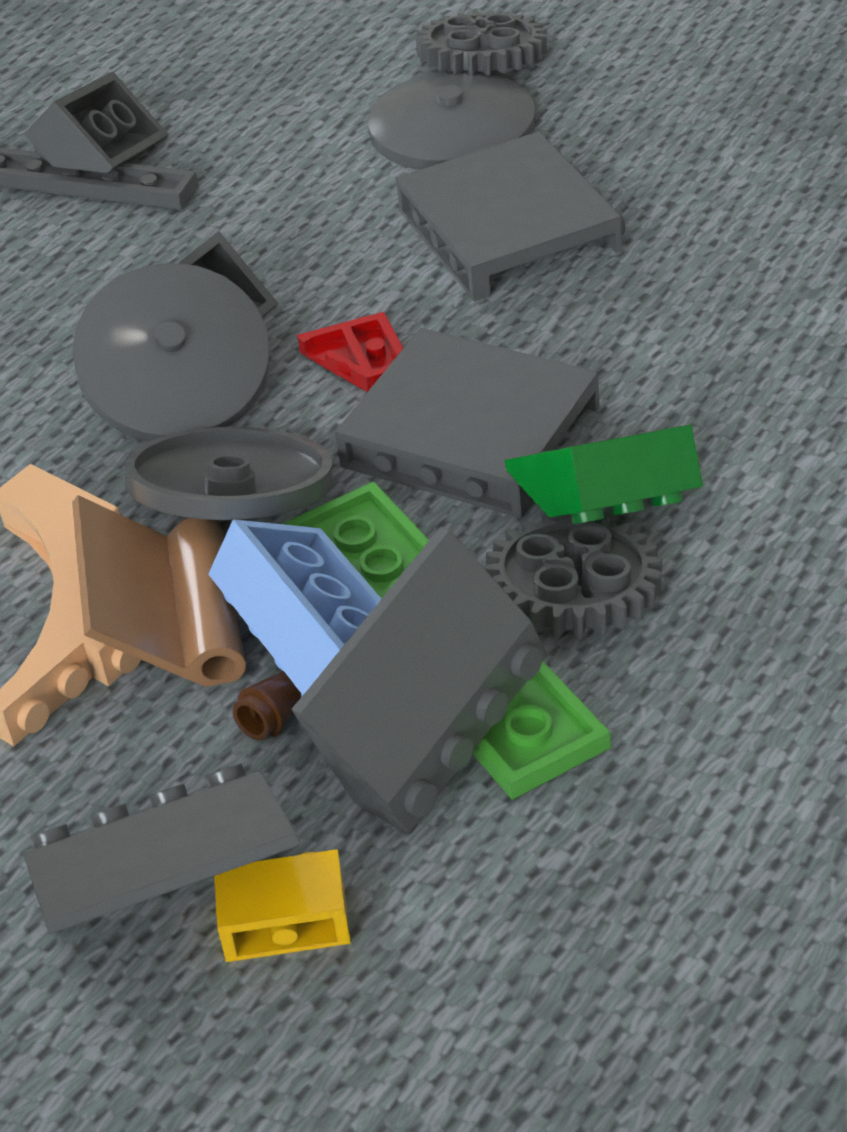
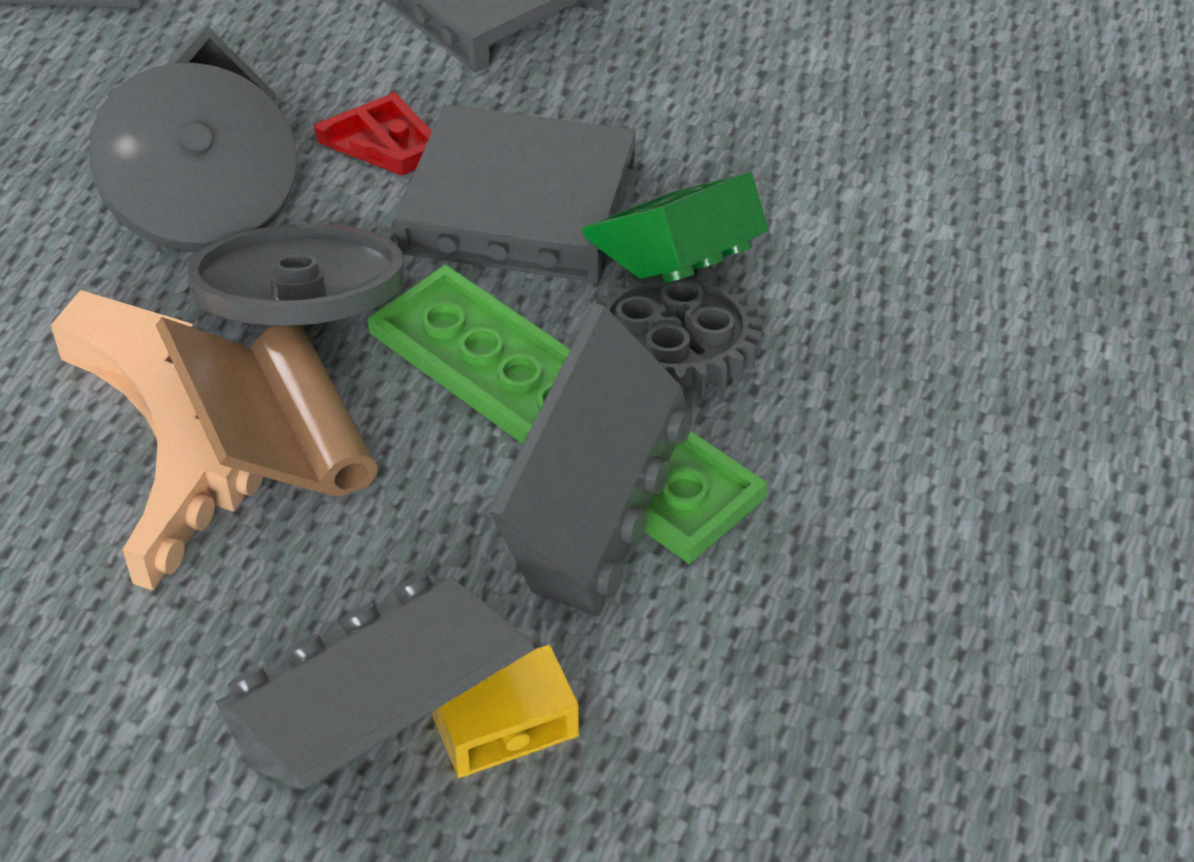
camera: 20 degrees left, 5 degrees up
(266, 706) = (417, 504): reddish brown cone -> none
(292, 593) = (430, 402): light blue brick -> none

